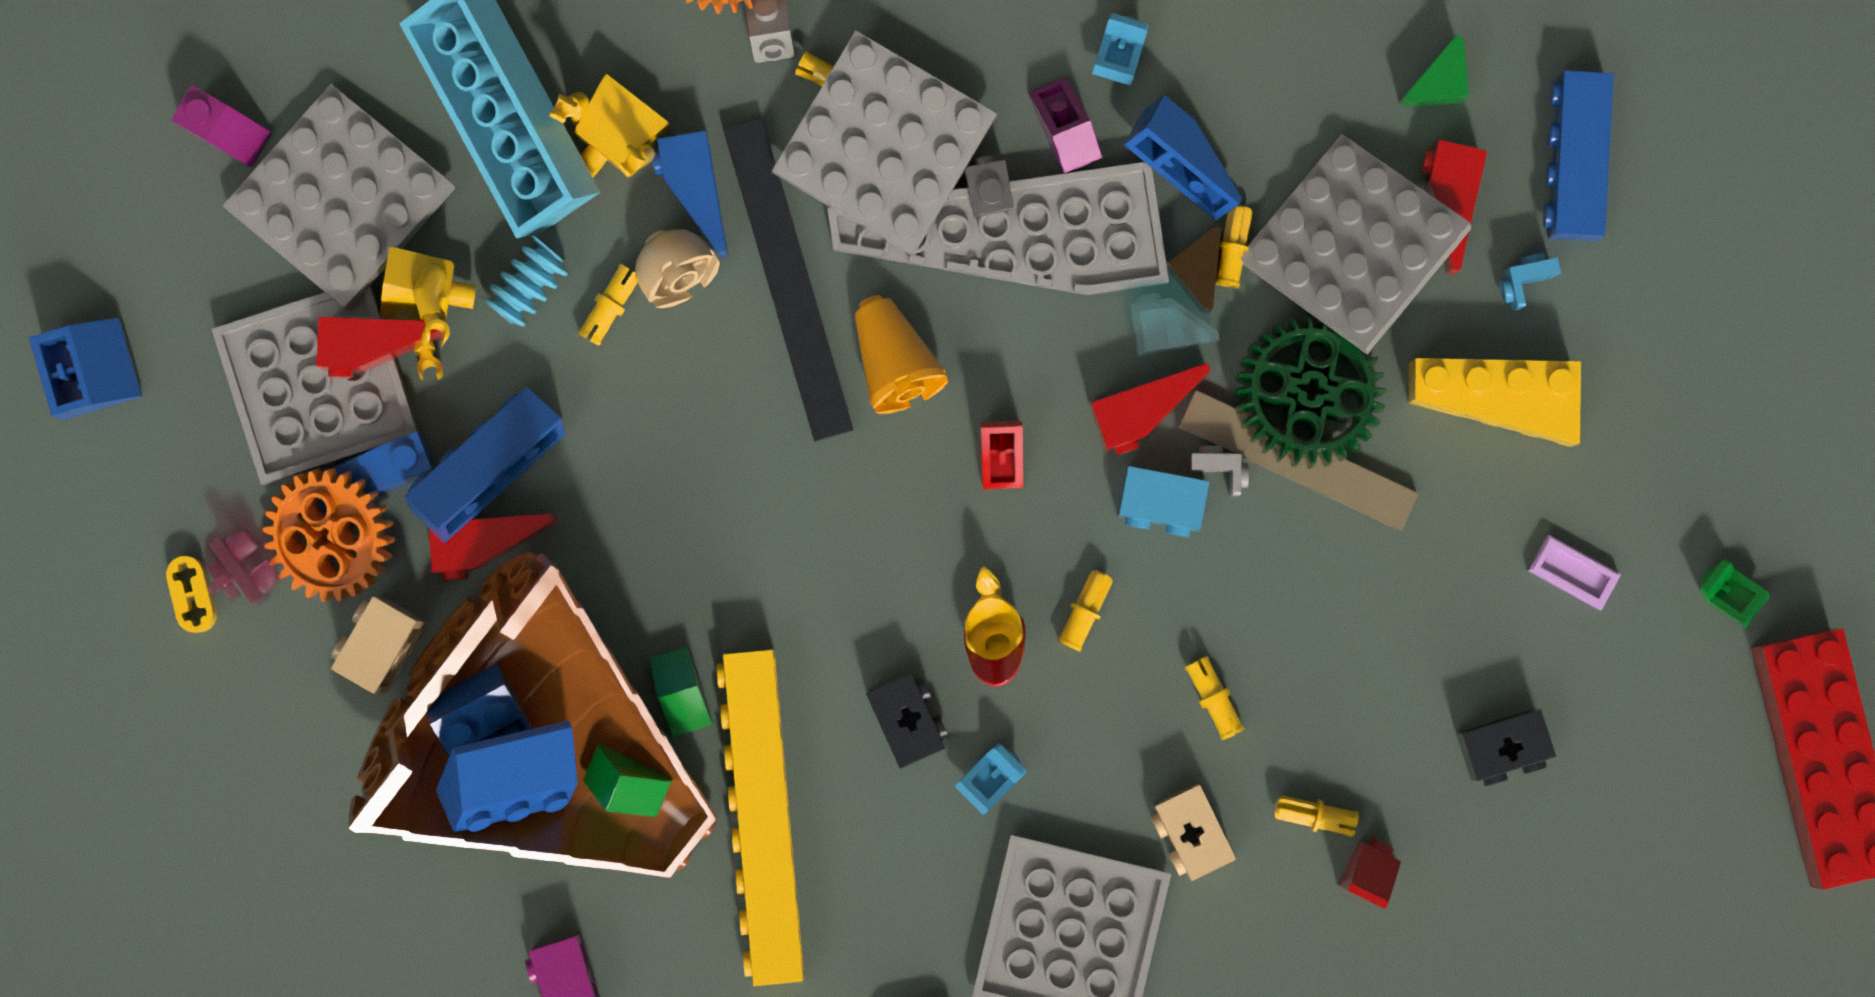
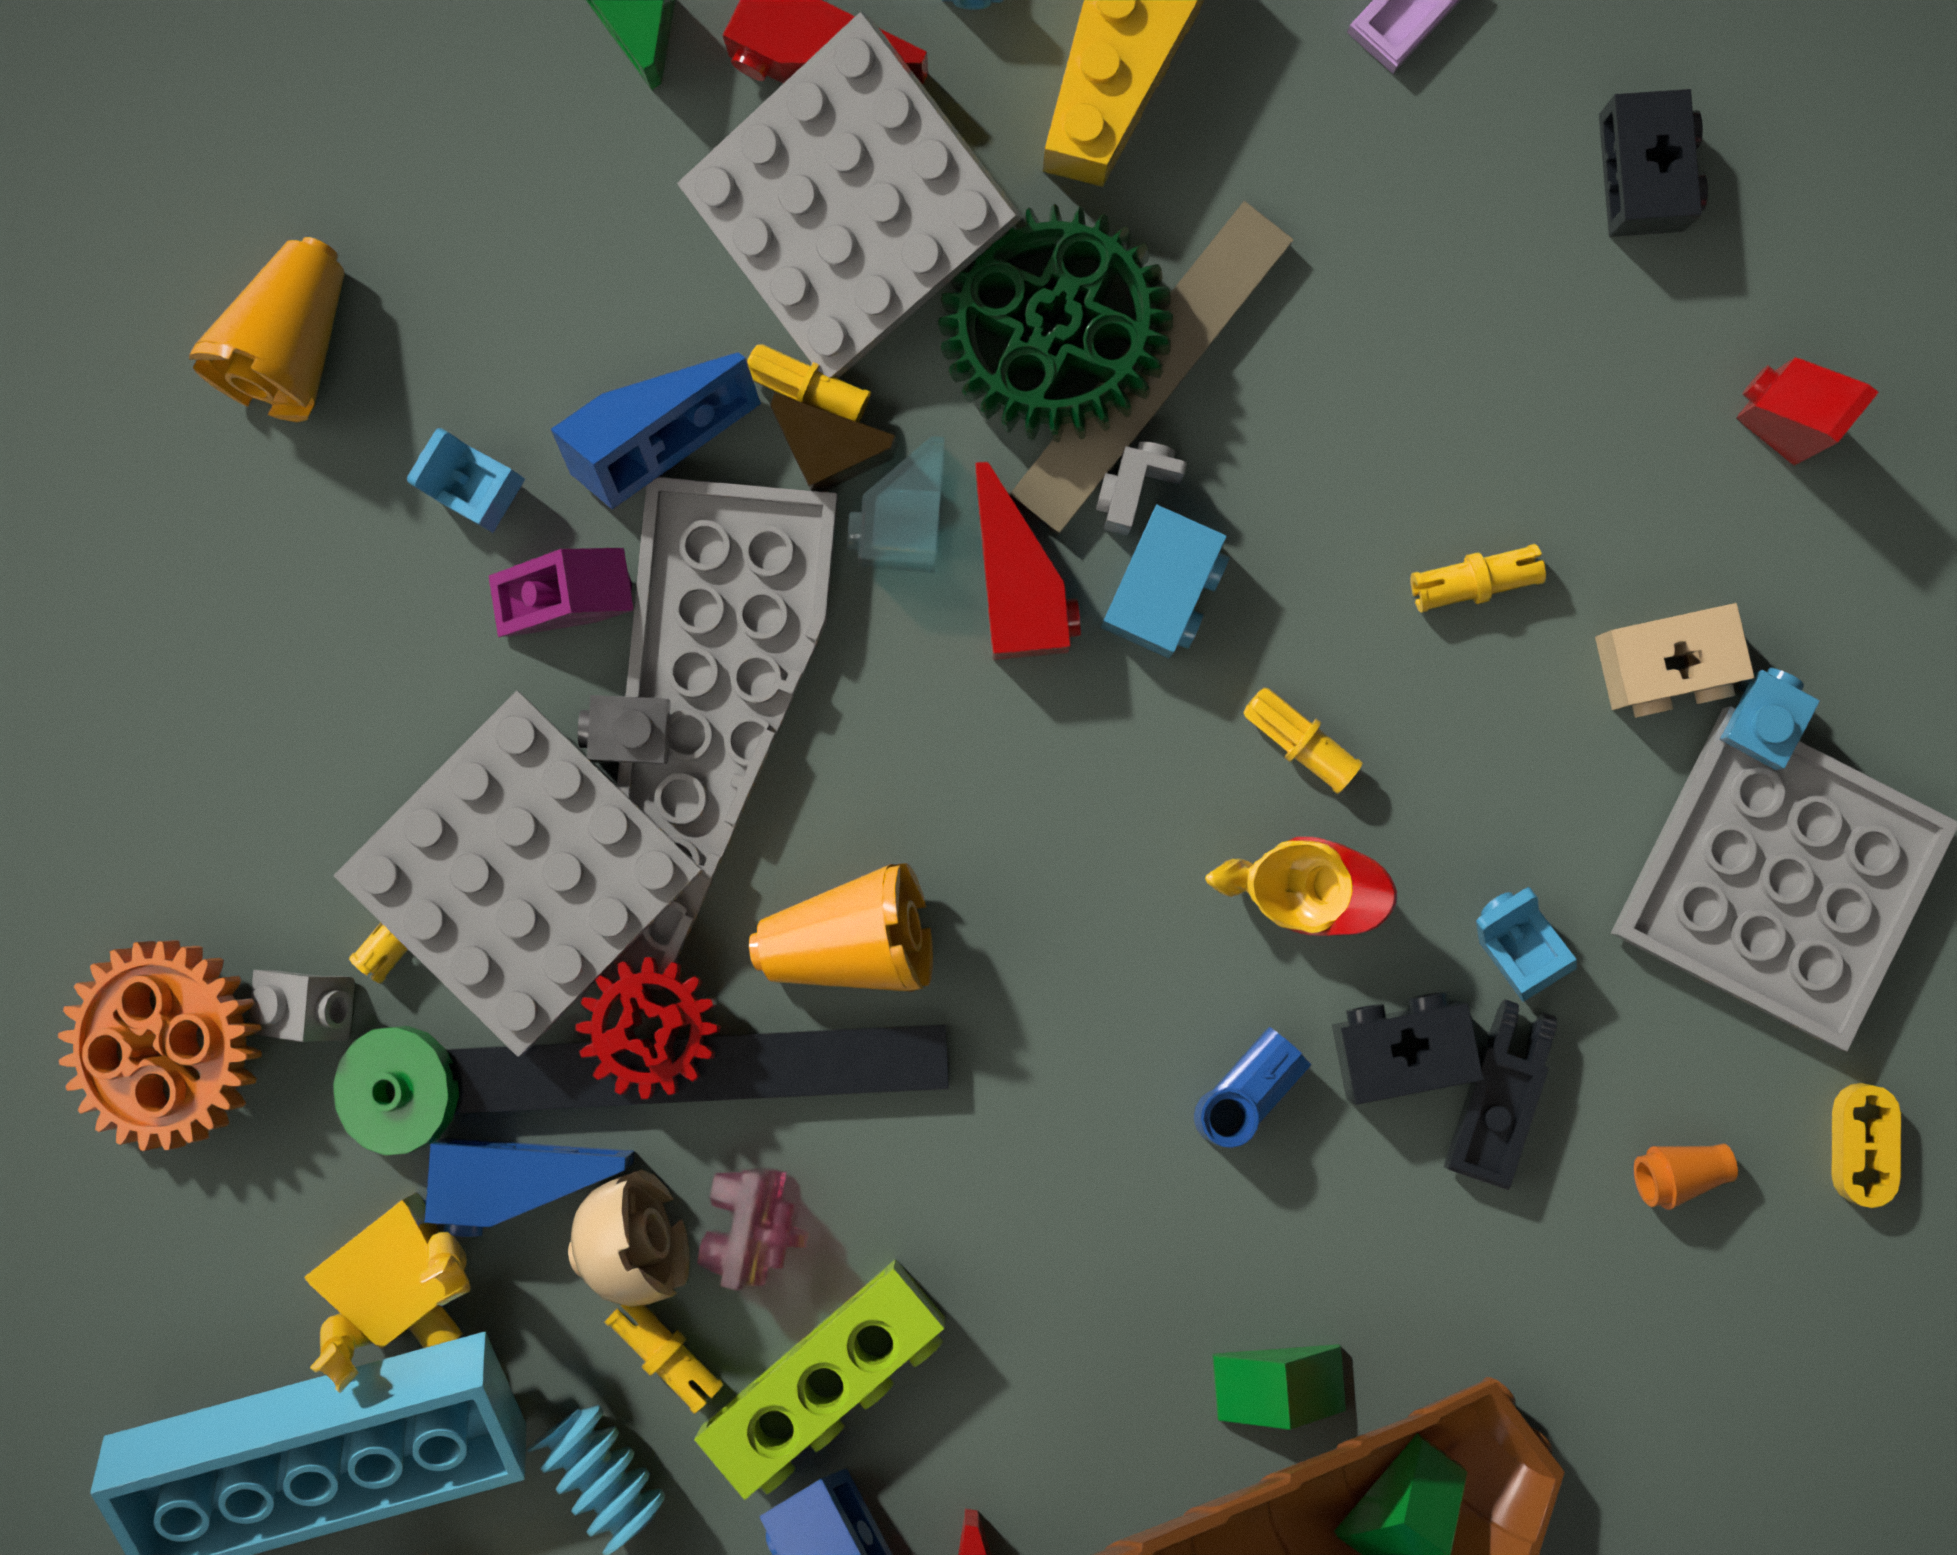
camera: 75 degrees left, 0 degrees up
(571, 360) = (734, 1434): none -> lime brick
(699, 344) = (758, 1231): none -> clear pink hips
(731, 118) = (422, 1085): none -> plate
(763, 818) = (1506, 1306): yellow brick -> none
(797, 231) = (622, 1037): none -> red gear
(862, 630) = (1254, 1085): none -> blue piece
(871, 911) = (1680, 1173): none -> orange cone
(887, 788) = (1504, 1103): none -> black hinge
(1002, 454) = (1038, 808): red slope -> none
(1170, 899) = (1770, 717): none -> dark azure bracket
(1316, 815) = (1689, 468): yellow axle -> none

